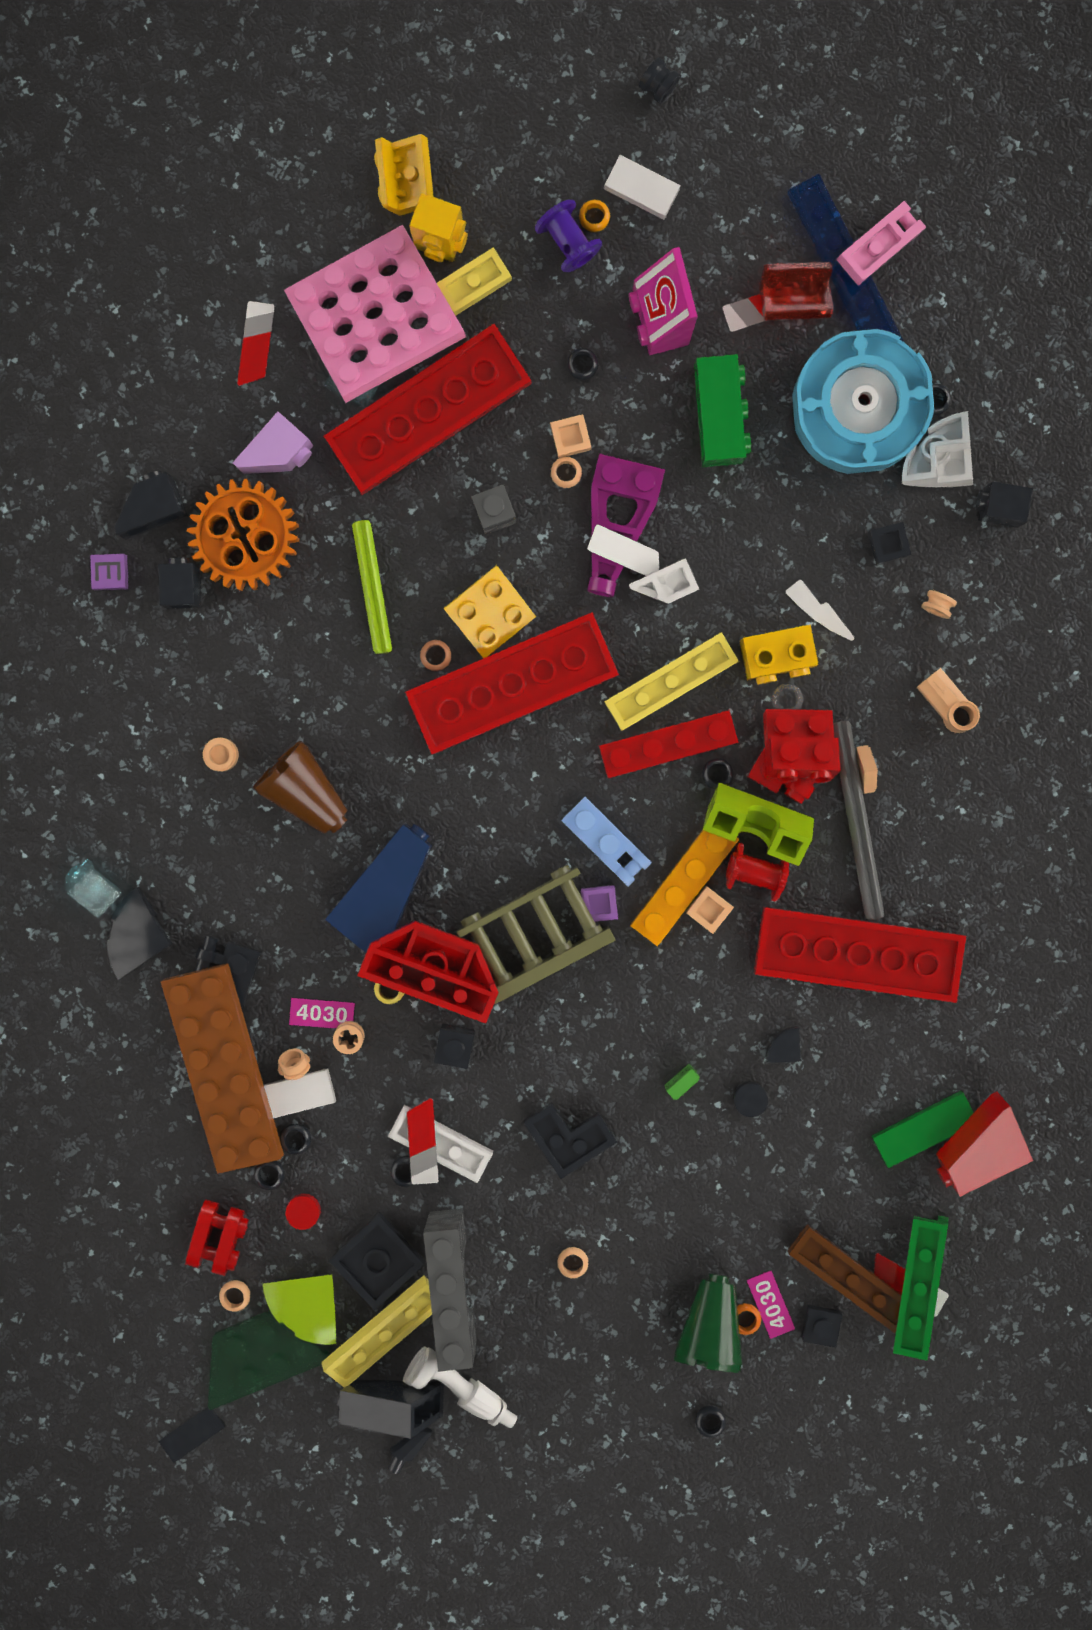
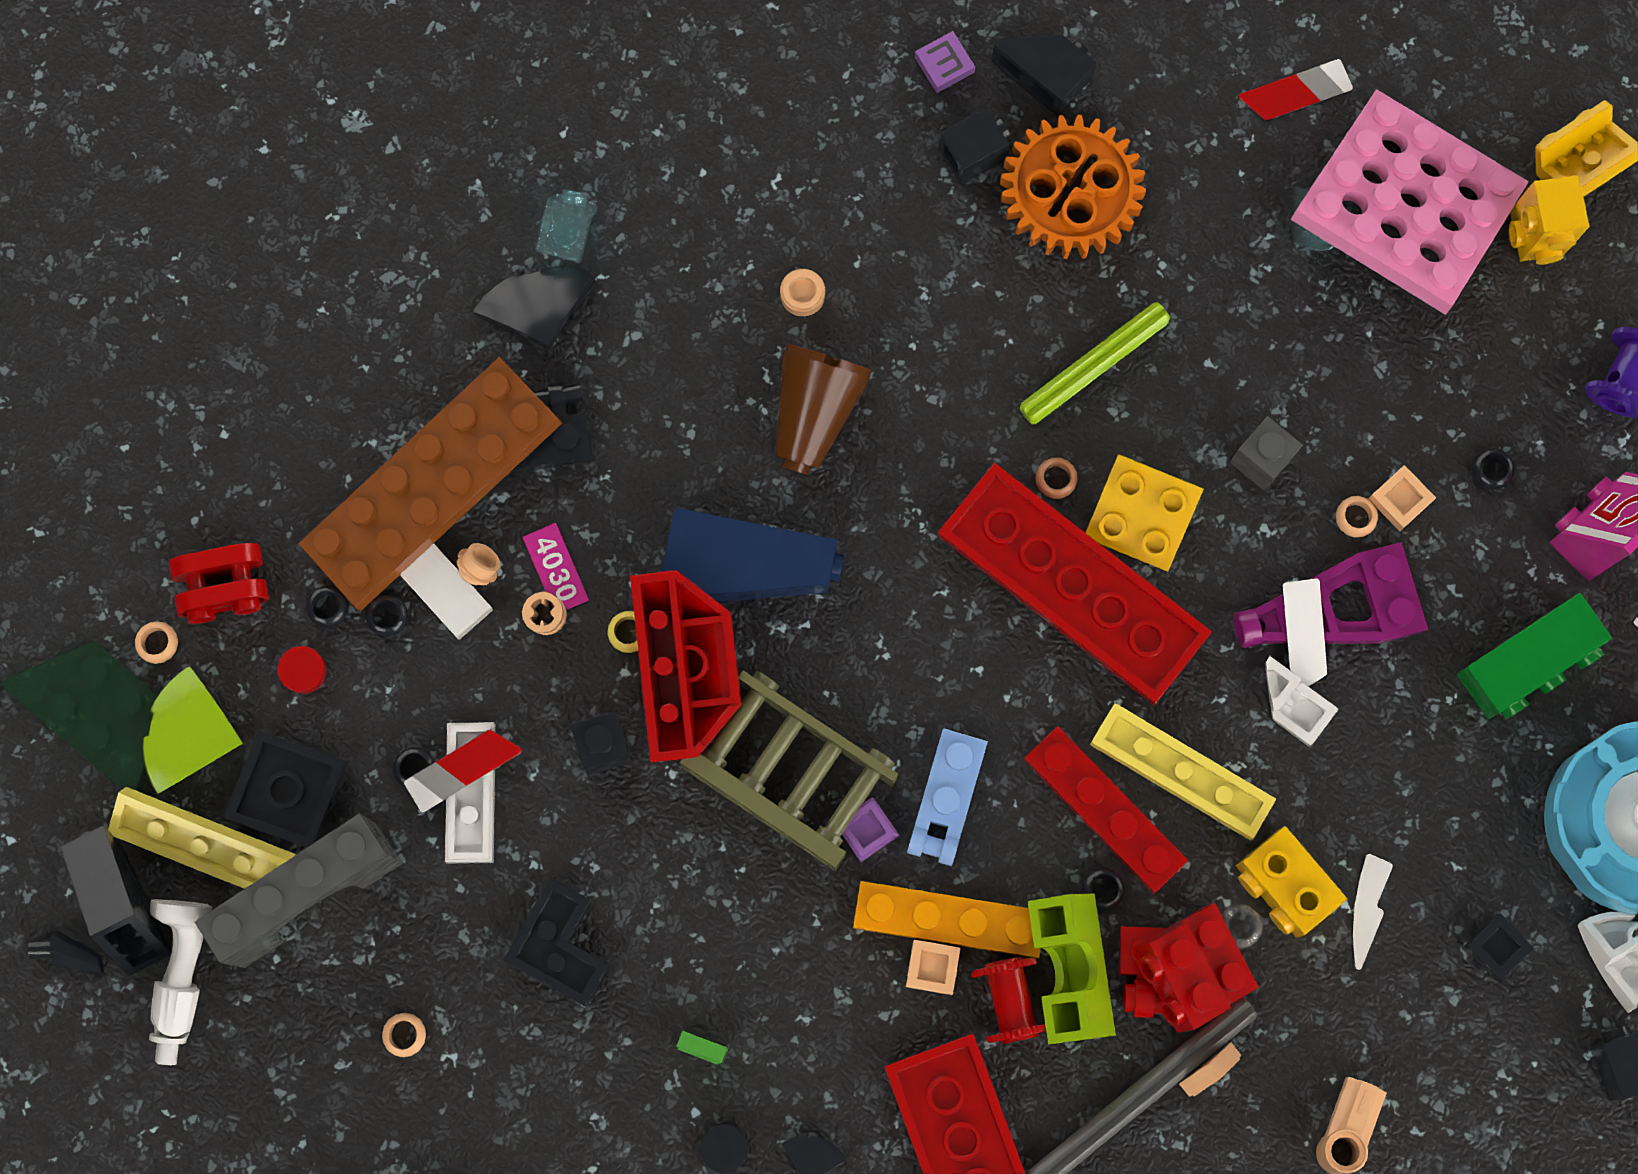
camera: 55 degrees right, 10 degrees down
(275, 448) = (1191, 170): lavender slope -> none
(428, 409) = (1337, 319): red plate -> none
(474, 281) = (1512, 294): light yellow plate -> none
(939, 604) = (1461, 1049): light nougat bush -> none

